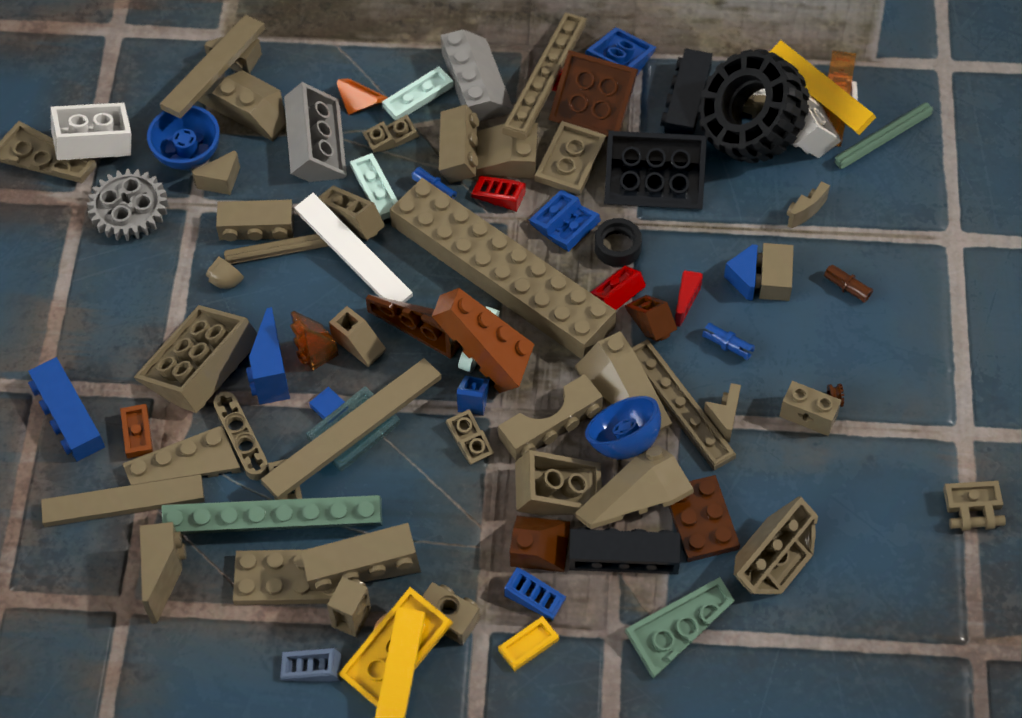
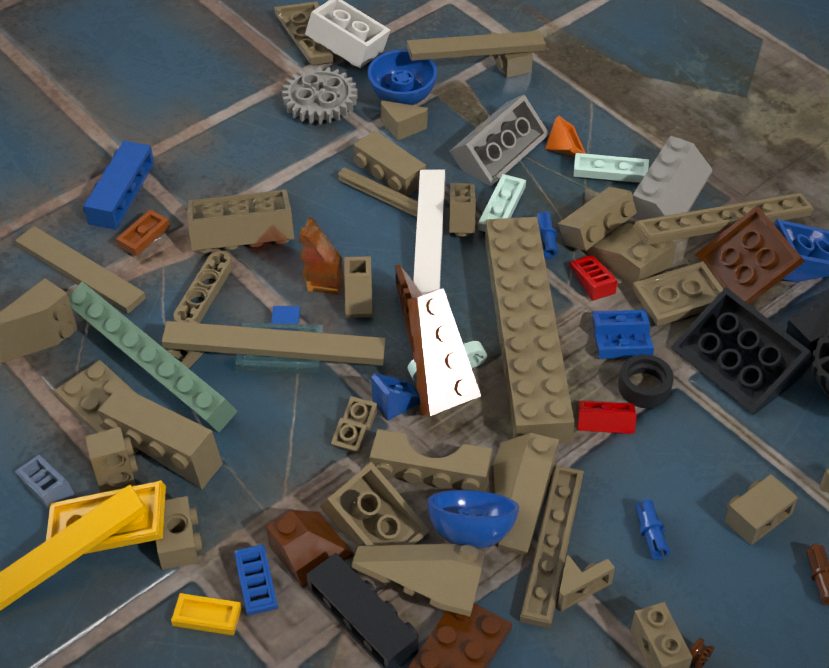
camera: 45 degrees right, 10 degrees down
(200, 454) = (159, 280): dark tan wing -> none
(223, 274) = (323, 181): dark tan piece -> none
(248, 103) = (480, 89): dark tan wedge -> none
(267, 369) = (272, 253): blue slope -> none
(390, 136) = (553, 180): dark tan slope -> none
(652, 317) = (605, 458): reddish brown slope -> none
(689, 289) = (658, 463): red slope -> none
(742, 271) = (729, 482): blue slope -> none

